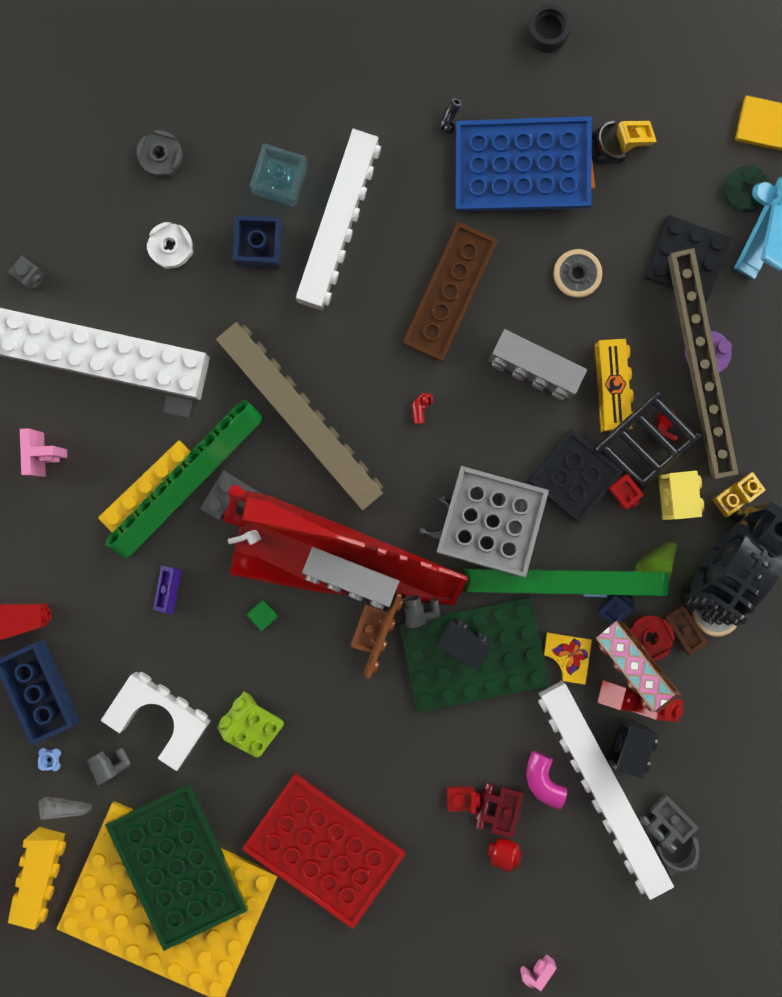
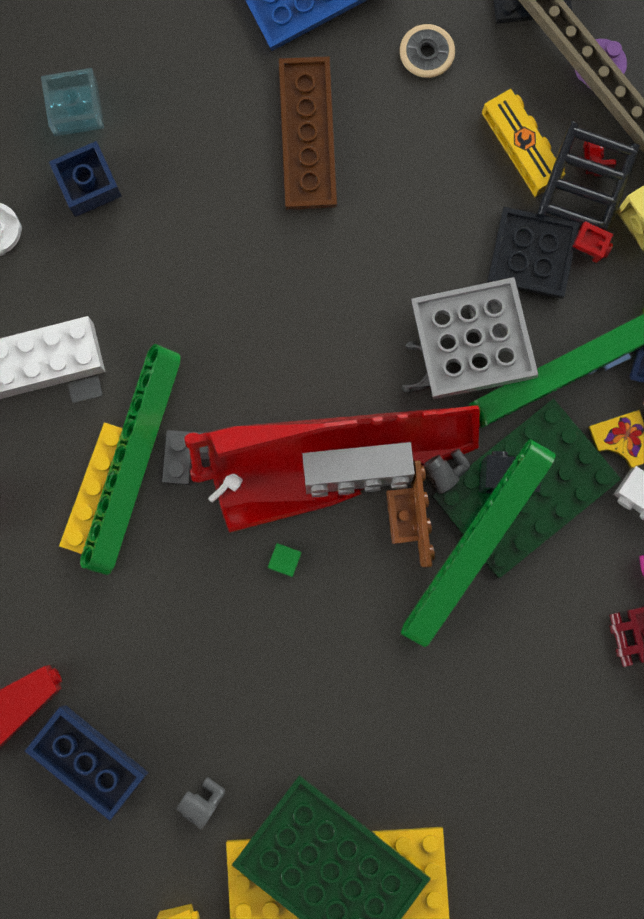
camera: 25 degrees left, 5 degrees down
(44, 764) = (131, 837): light blue plate -> none
(57, 808) = (170, 877): clear slope -> none
(167, 589) = (170, 583): dark purple plate -> none
(187, 722) = (195, 707): white arch -> none
(249, 726) = (331, 682): lime bracket -> none
(300, 417) = (219, 334): dark tan brick -> none
(324, 850) = (478, 775): red plate -> none
(337, 220) = (155, 118): white brick -> none
(412, 683) = (478, 542): none -> green beam
(419, 406) = (336, 263): red arm -> none
(462, 799) = (594, 644): red bracket -> none
(537, 365) = (435, 159): light grey brick -> none

